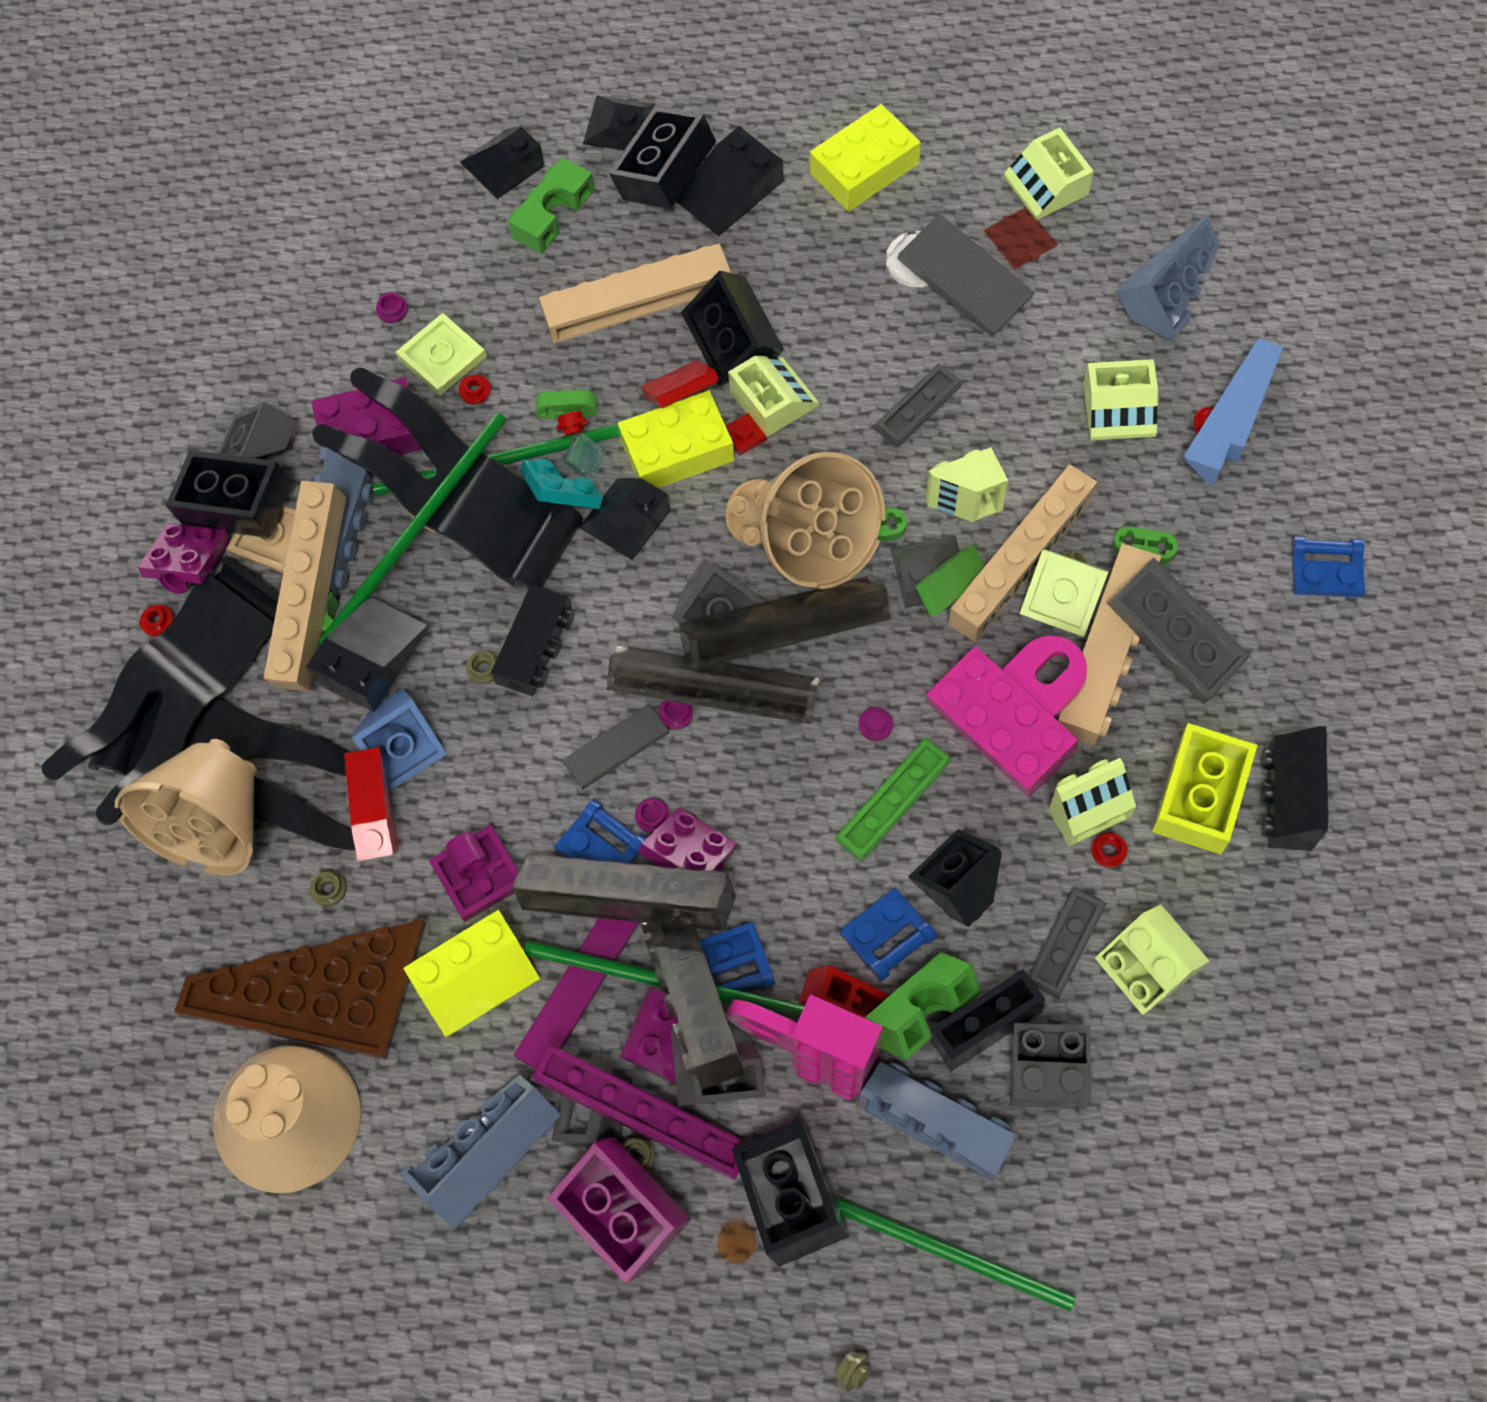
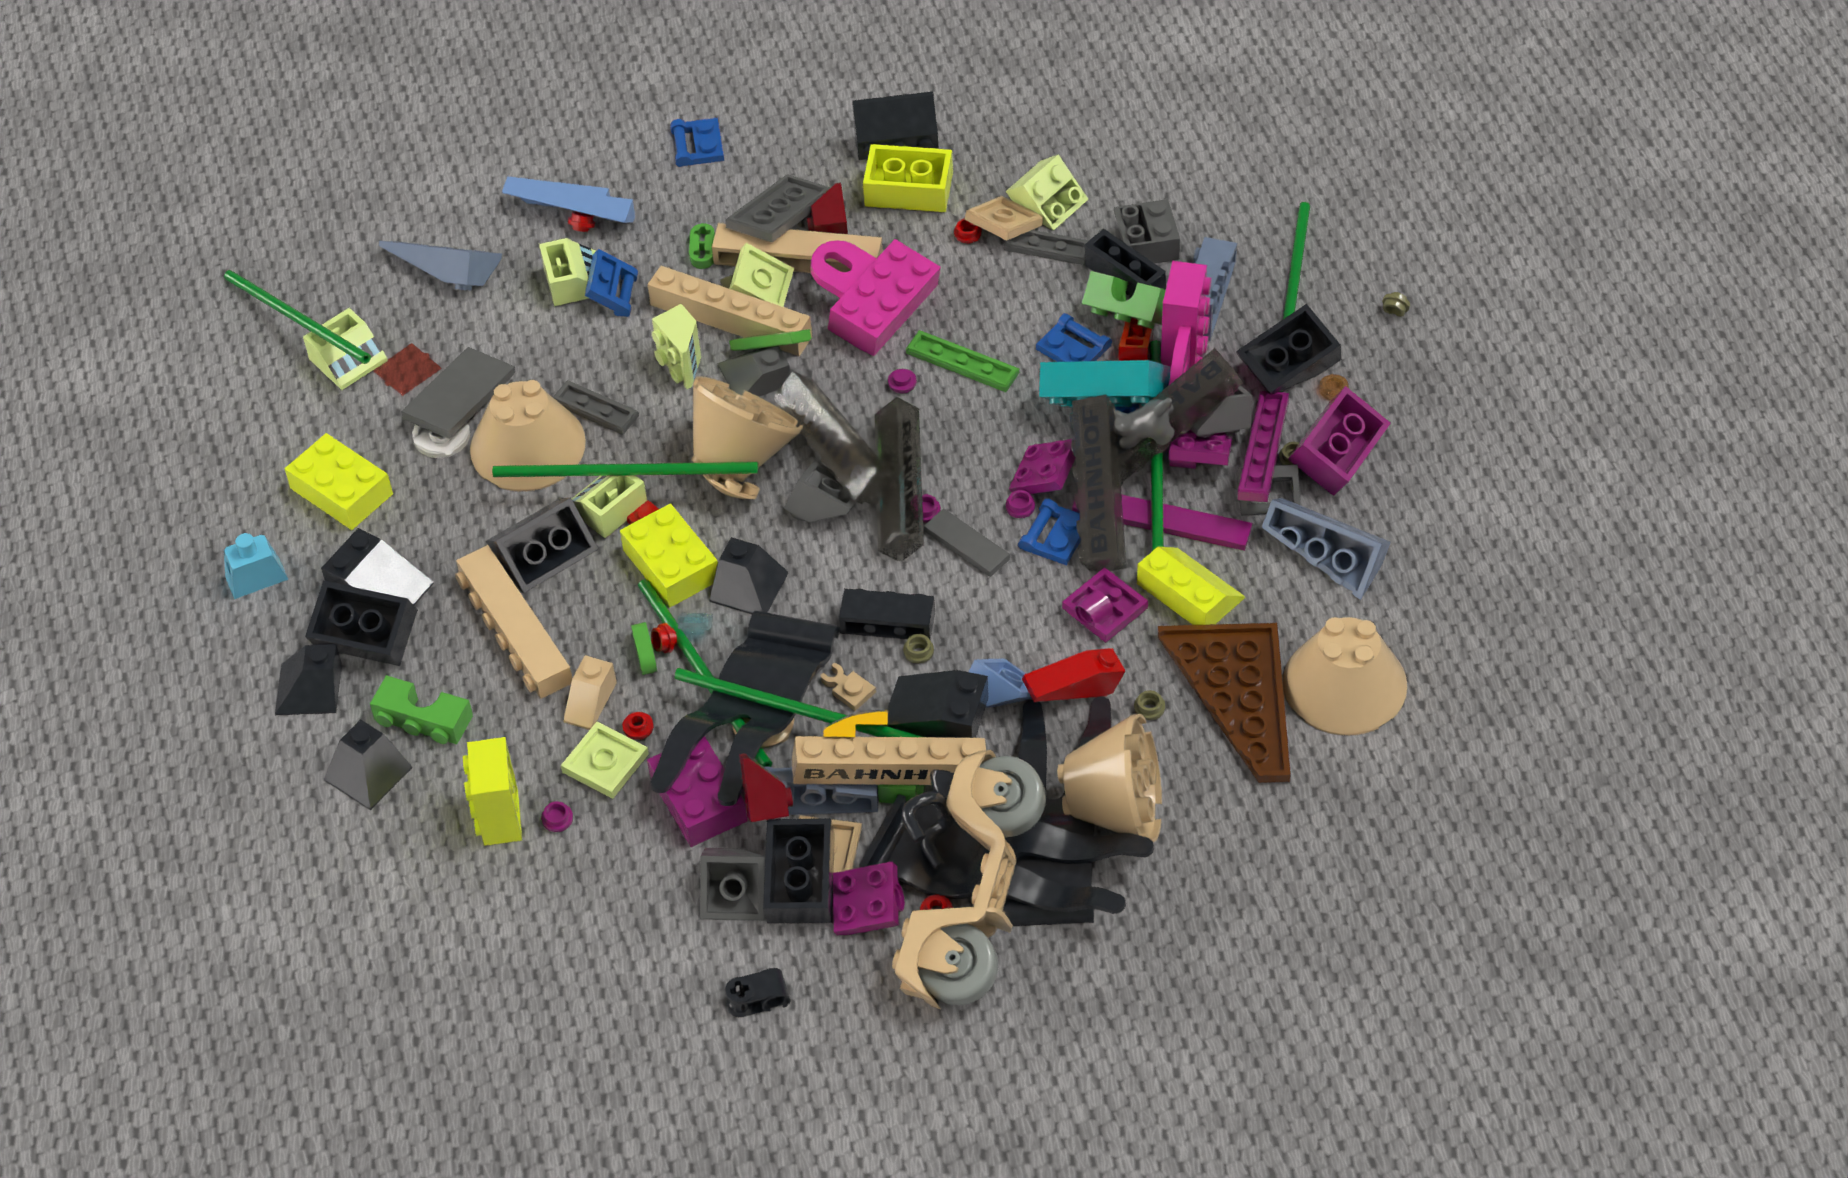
camera: 105 degrees left, 15 degrees down
(122, 443) = (758, 993): none -> black piece
(168, 651) = (949, 949): none -> piece
(301, 455) = (763, 791): none -> dark red slope
(349, 555) = (847, 725): none -> yellow slope
(404, 237) = (492, 791): none -> neon yellow brick
(455, 592) = (849, 689): none -> tan plate
(526, 350) = (589, 692): none -> tan slope
(551, 487) = (739, 621): teal plate -> none
(672, 951) = (1146, 422): none -> dark grey animal
(679, 383) = (611, 562): red tile -> none
(769, 67) = (252, 565): none -> medium azure torso
(772, 931) = (1120, 380): none -> teal brick
(780, 402) = (625, 469): none -> green piece
(881, 333) = (525, 429): none -> tan cone
(960, 876) = (1015, 305): black slope -> none
(1090, 125) = (298, 317): none -> green piece
(1092, 801) = (936, 237): yellowish green slope -> none
(1095, 426) = (604, 280): none -> blue plate
(1113, 892) = (1004, 218): none -> tan tile
(1163, 689) = (829, 212): none -> dark red slope

